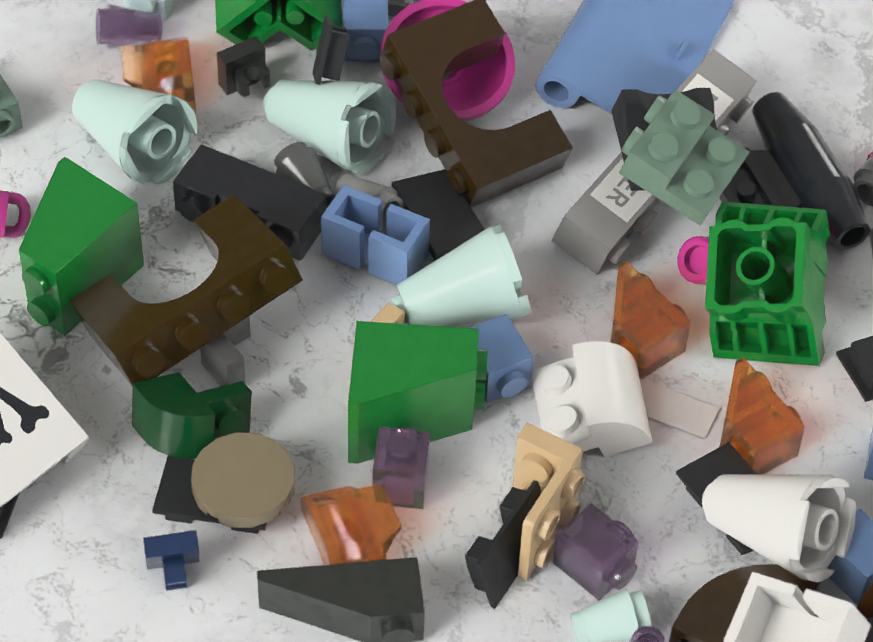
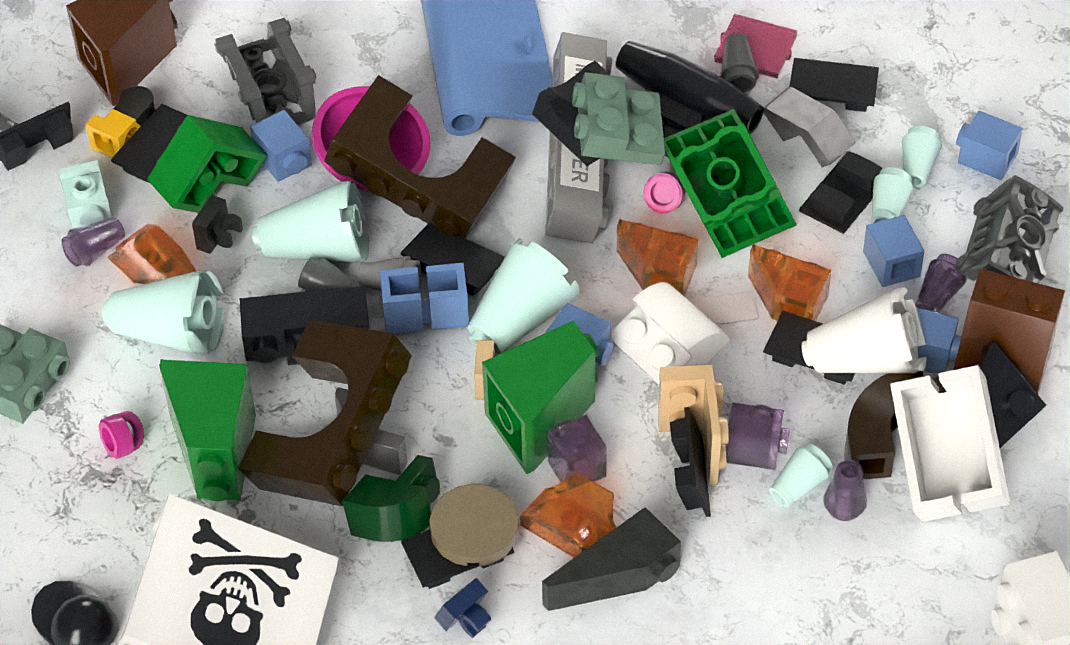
camera: 30 degrees left, 0 degrees up
(330, 52) = (283, 177): black piece -> none

